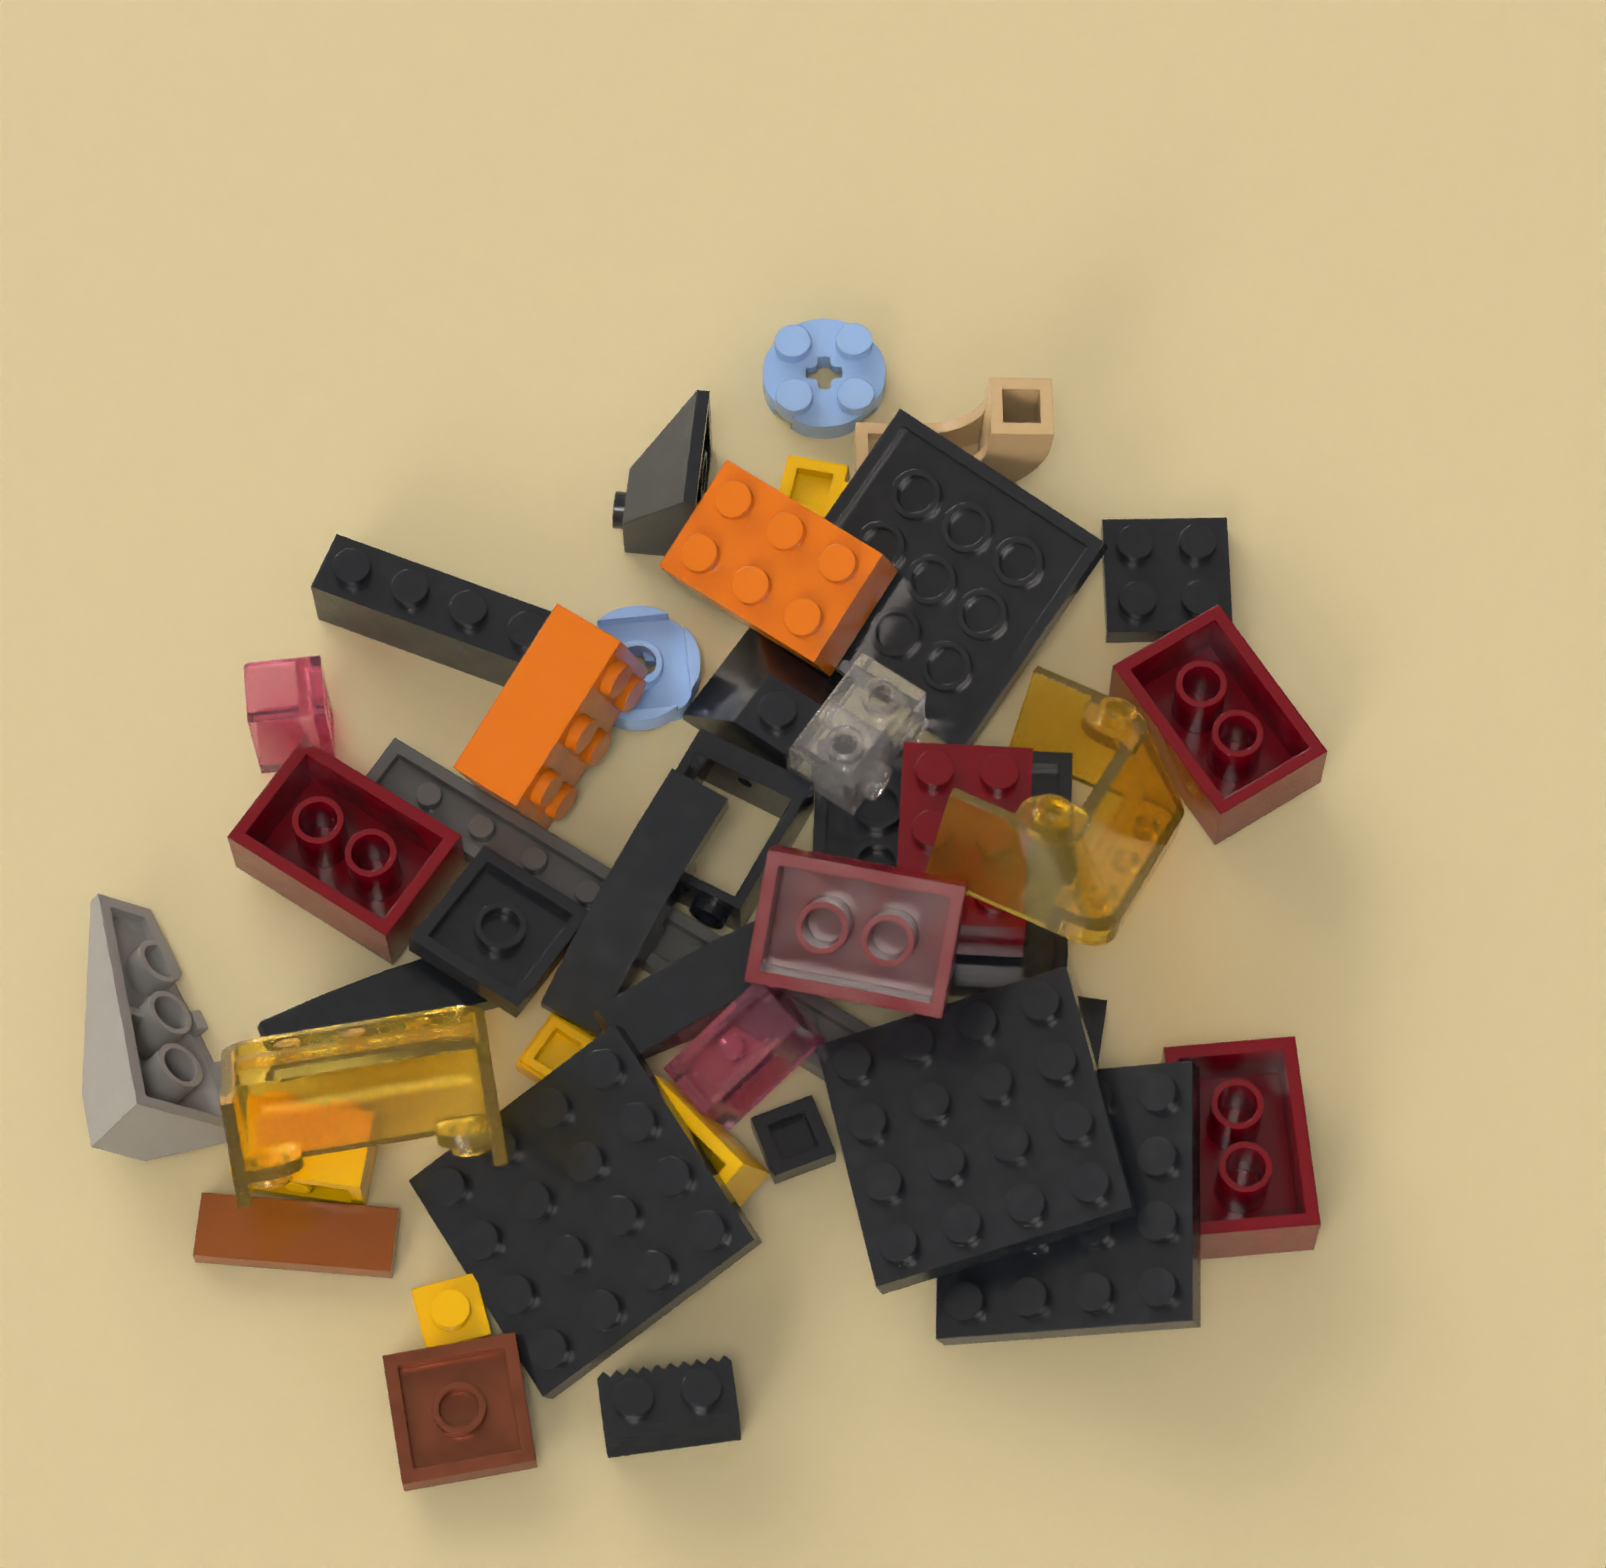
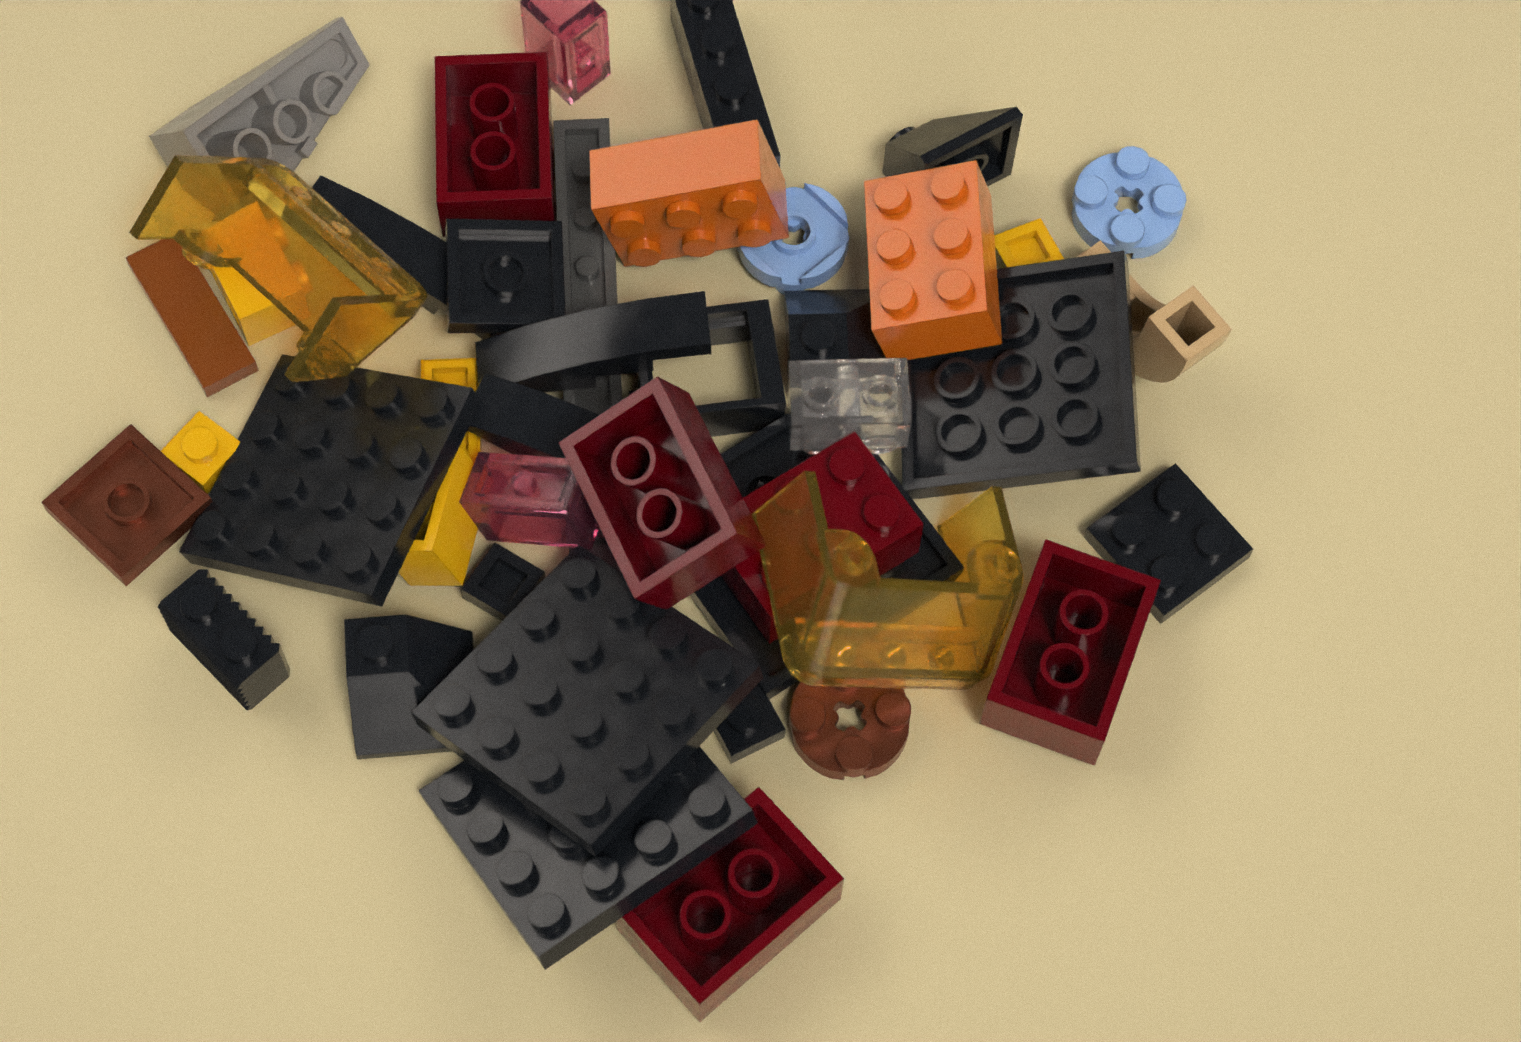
camera: 50 degrees right, 0 degrees up
(822, 1288) = (390, 672): none -> black slope
(1165, 960) = (854, 751): none -> copper plate

